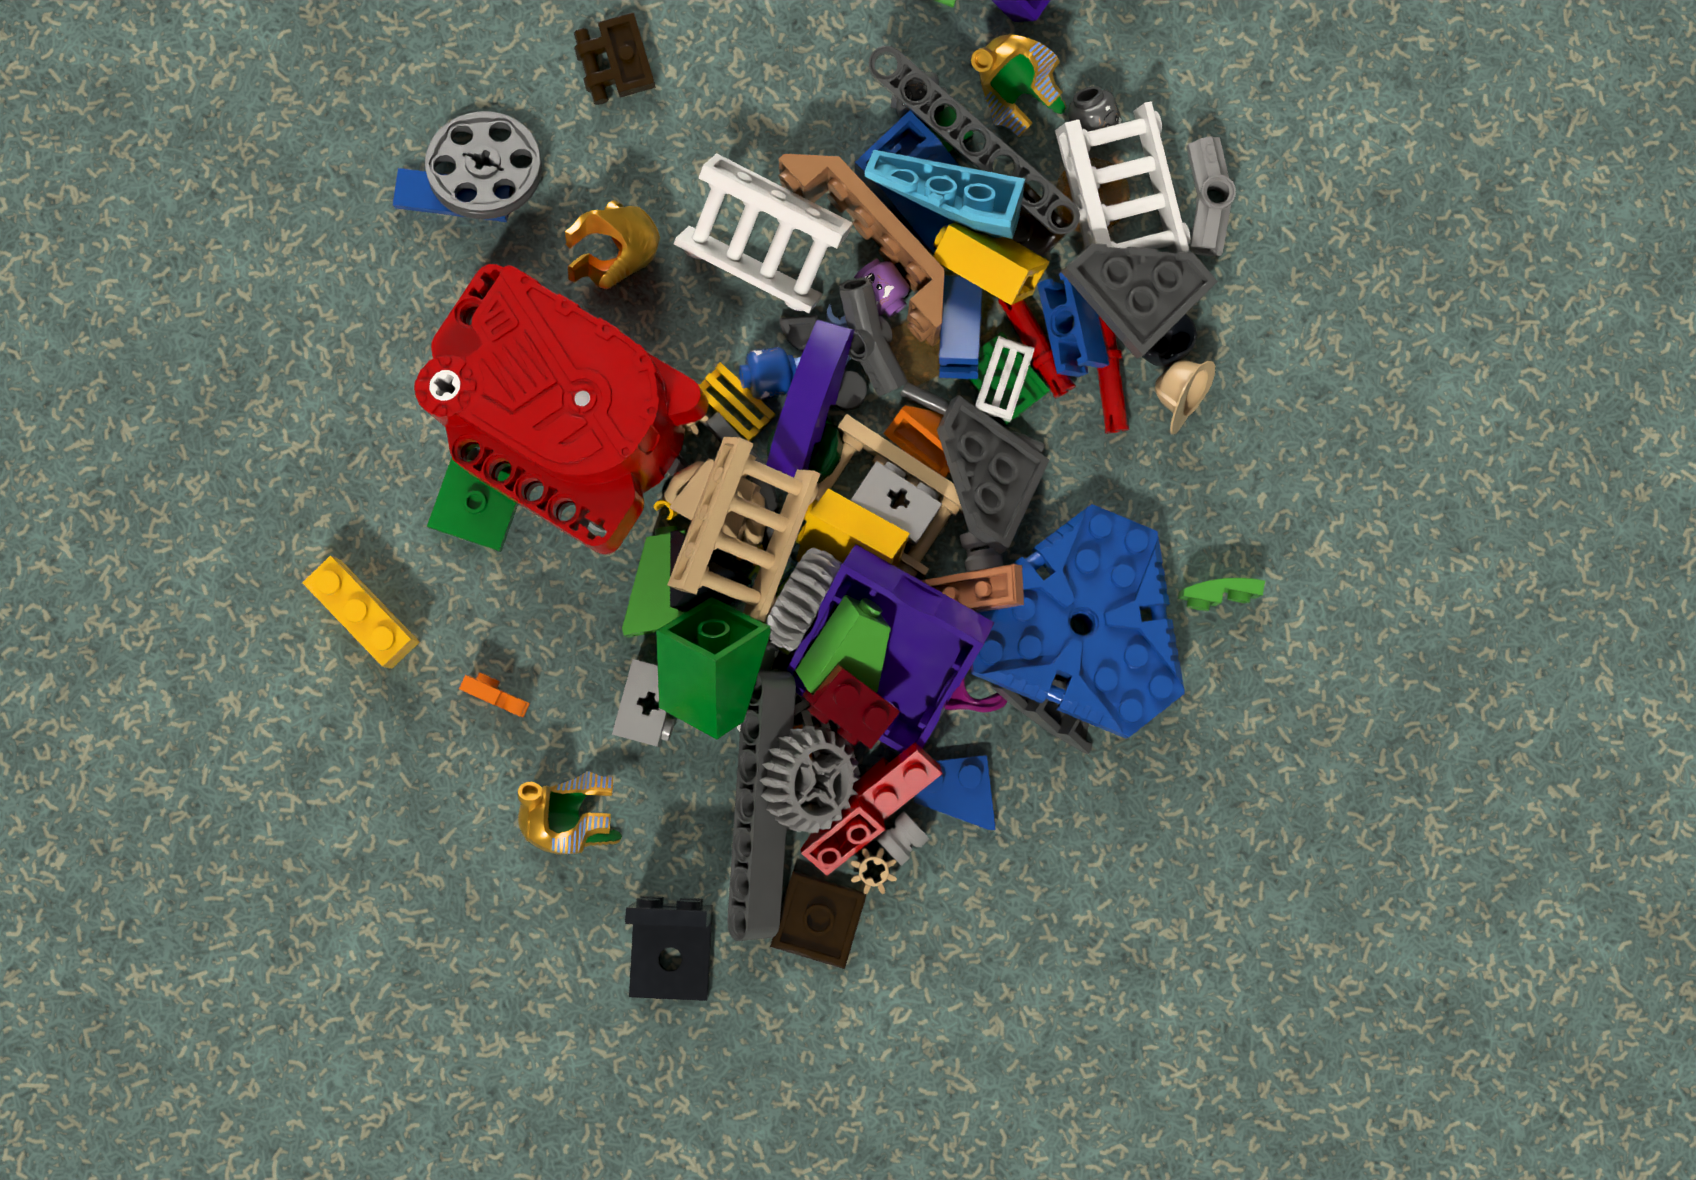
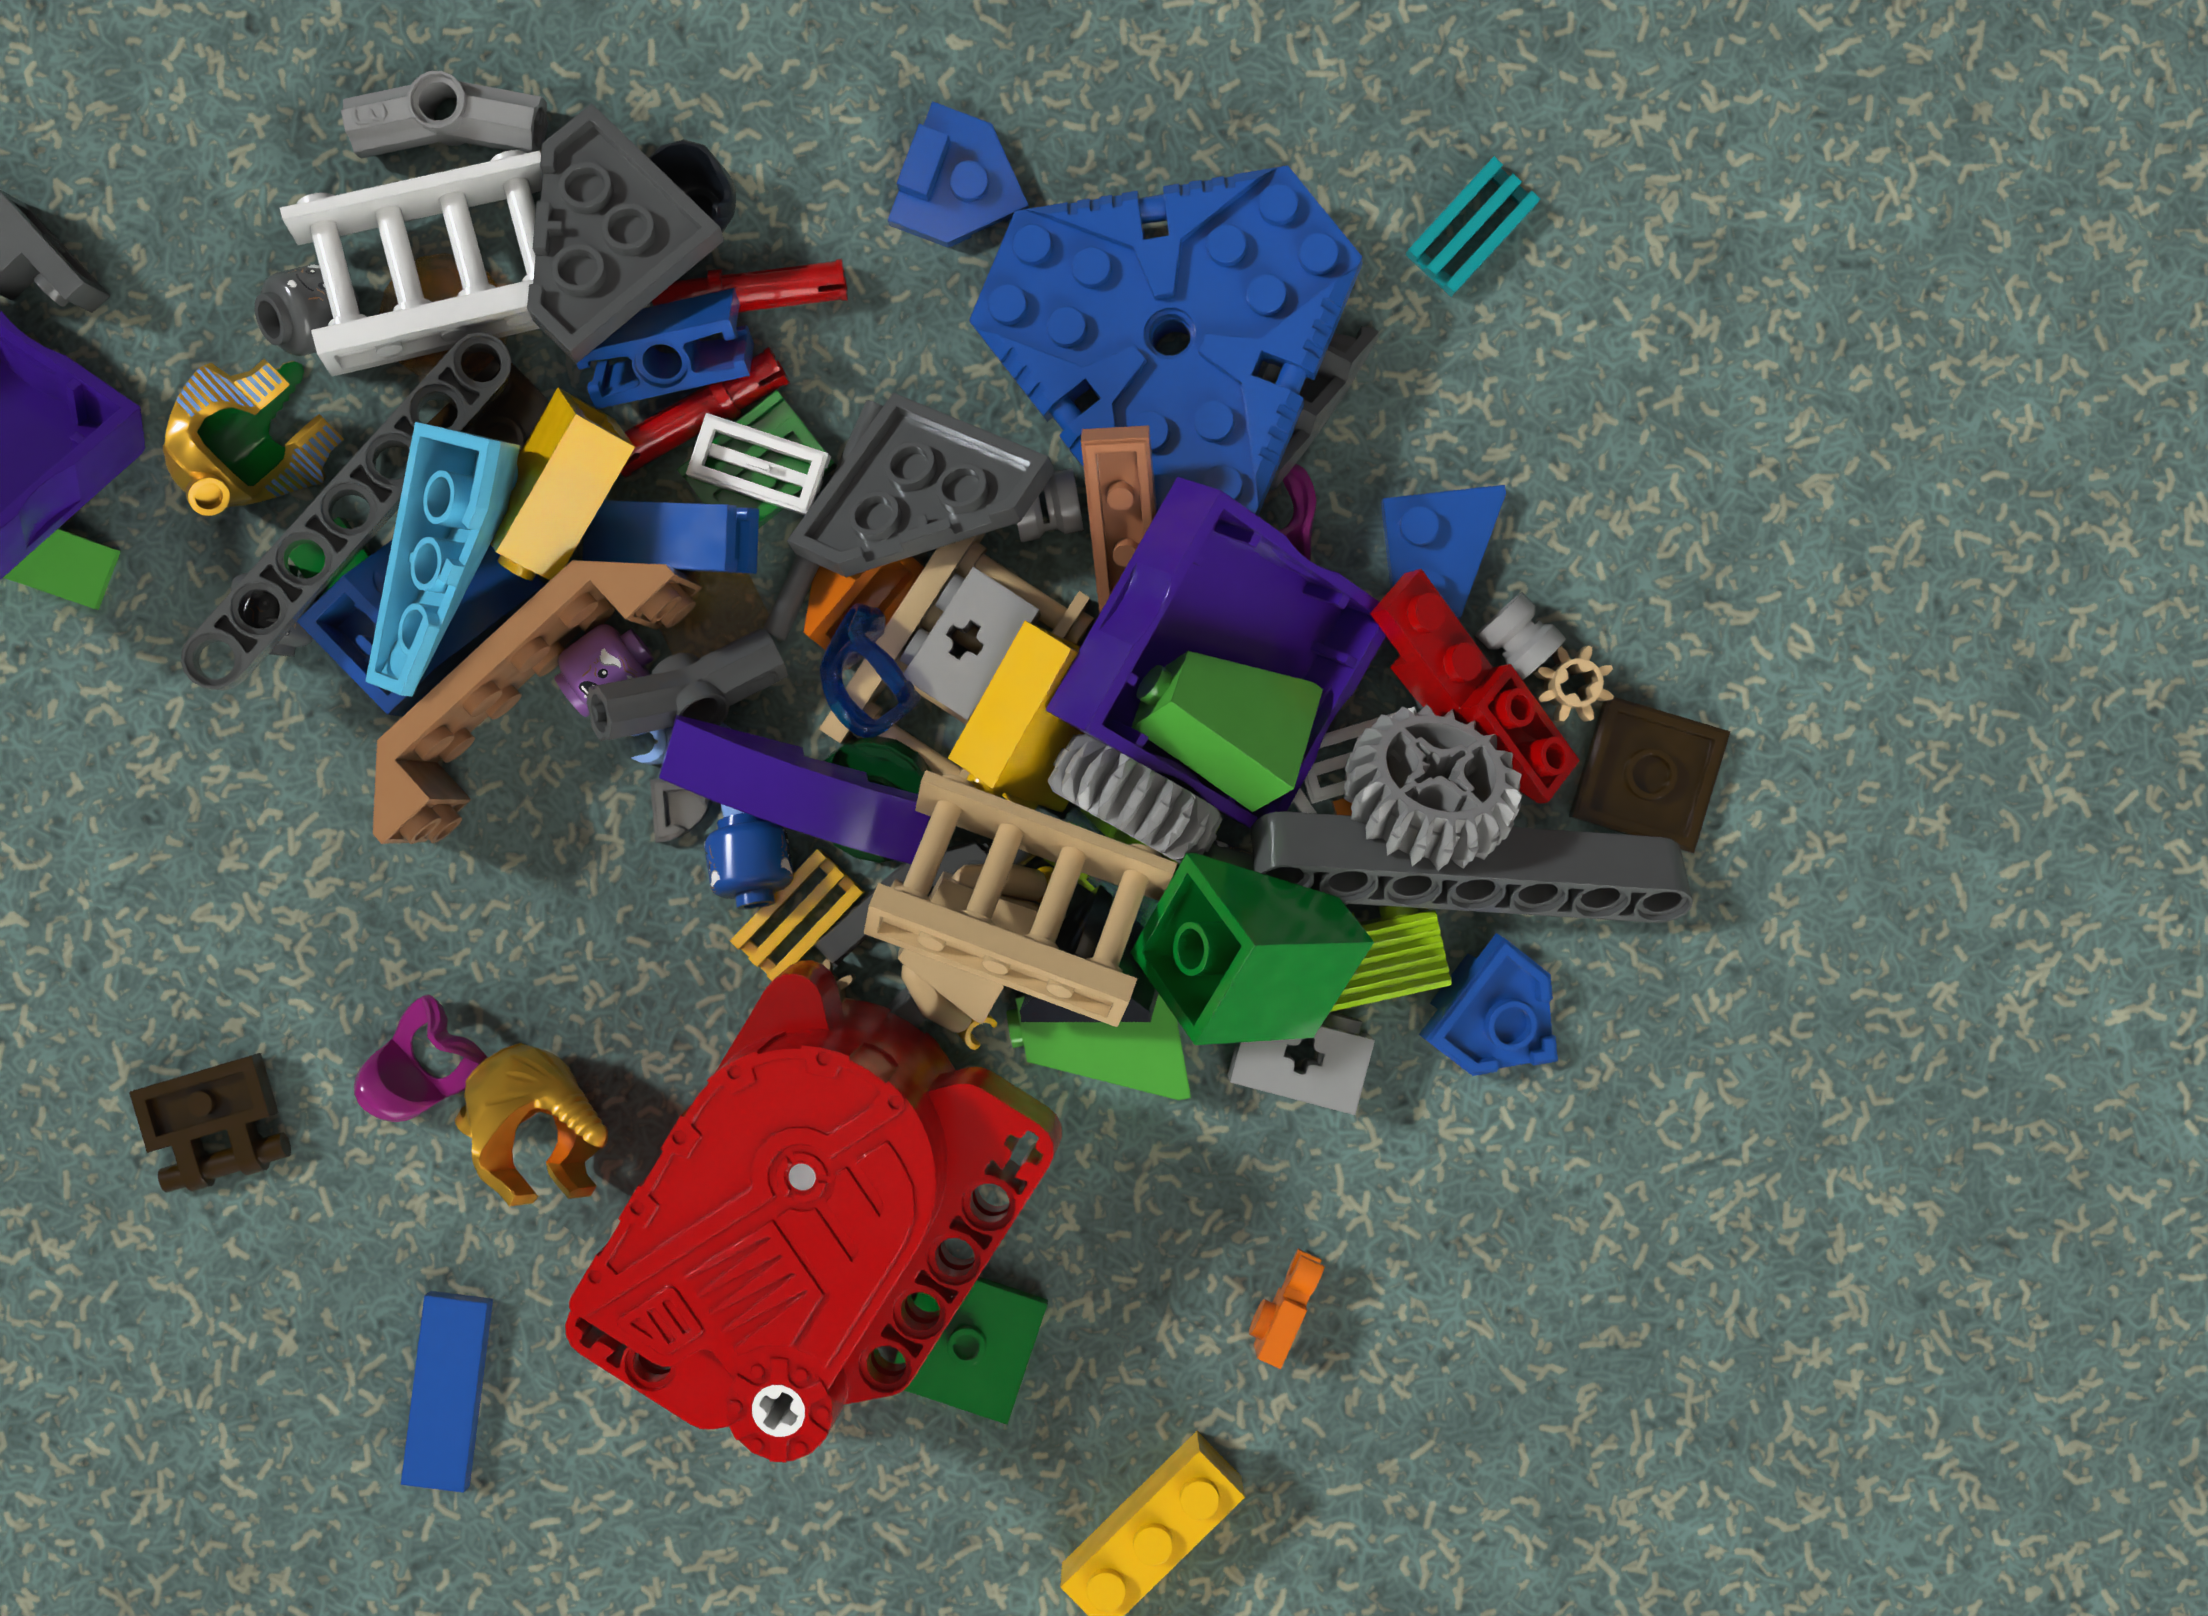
camera: 90 degrees left, 5 degrees up
(489, 178) = (418, 1333): wedge -> none
(552, 820) = (1492, 1210): pearl gold piece -> none
(637, 164) = (393, 1081): none -> magenta piece
(670, 925) = (1661, 1027): black bracket -> none
(672, 822) = (1494, 1012): none -> blue plate
(705, 759) = (1402, 960): none -> lime brick
(791, 212) = (477, 820): white fence -> none
(851, 392) = (778, 720): dark grey tile -> none
(852, 706) = (1318, 715): dark red bracket -> none
(897, 435) = (851, 643): none -> clear blue piece
(1177, 497) = (954, 180): none -> blue plate
(1178, 833) = (1508, 187): none -> teal tile
(1184, 388) = (770, 166): tan piece -> none
(1211, 592) = (1115, 120): bright green slope -> none

